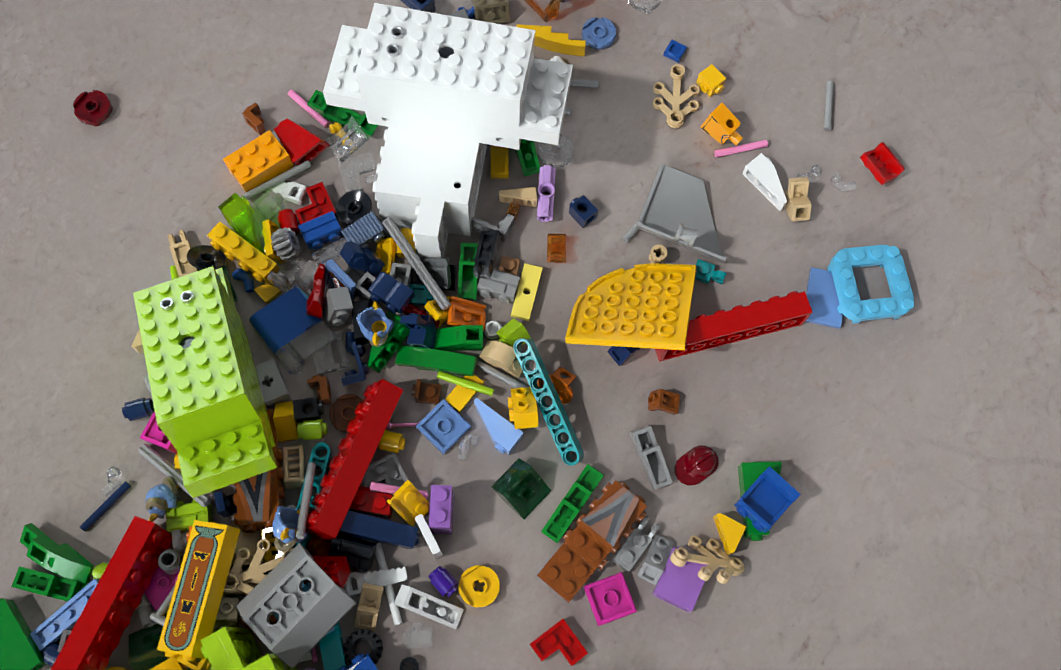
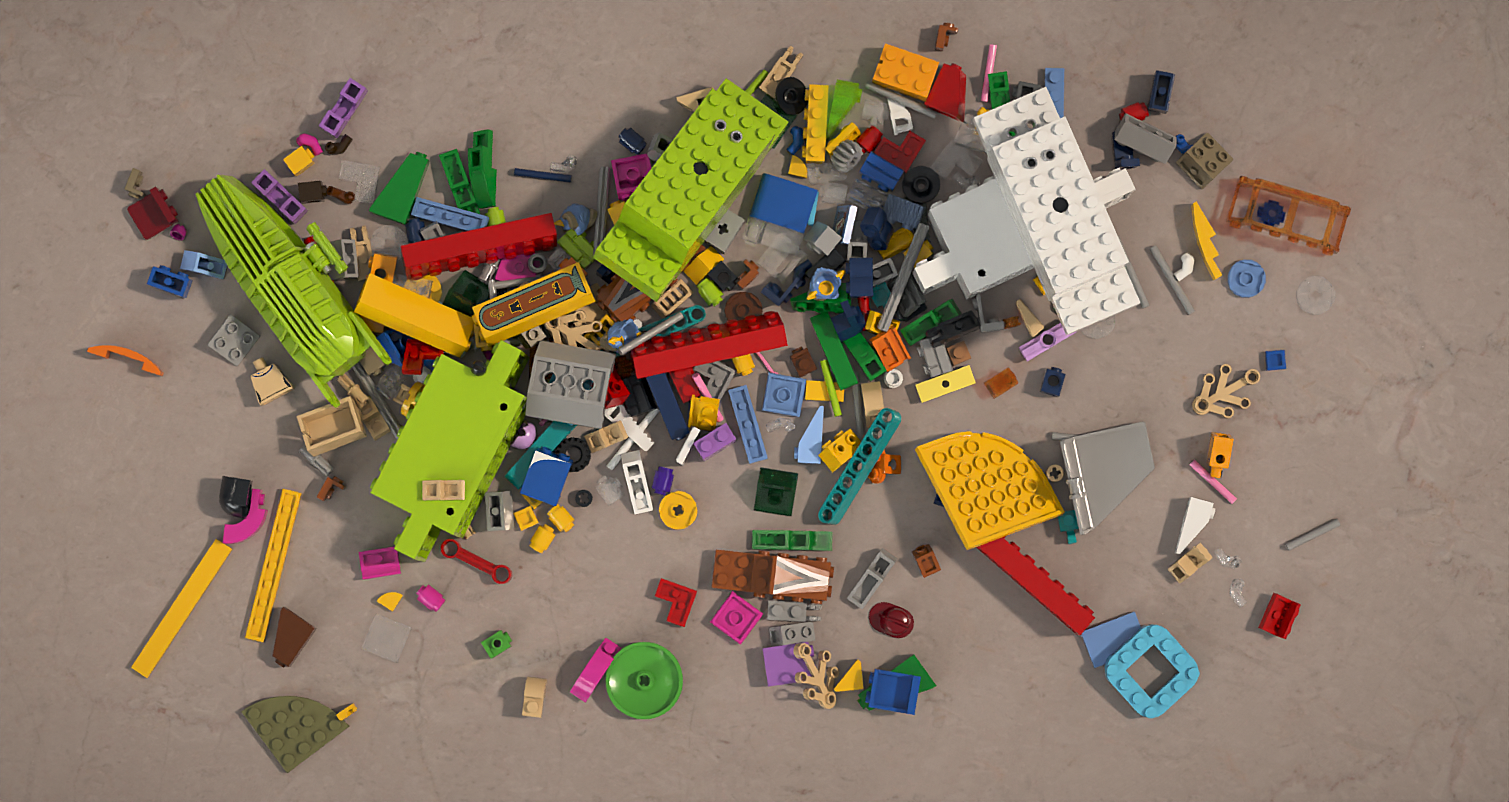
camera: 65 degrees right, 15 degrees up
(314, 304) = (815, 217): red slope -> none
(446, 473) = (747, 424): none -> medium blue plate
(511, 332) = (898, 398): lime brick -> none
(711, 80) = (1262, 413): yellow brick -> none

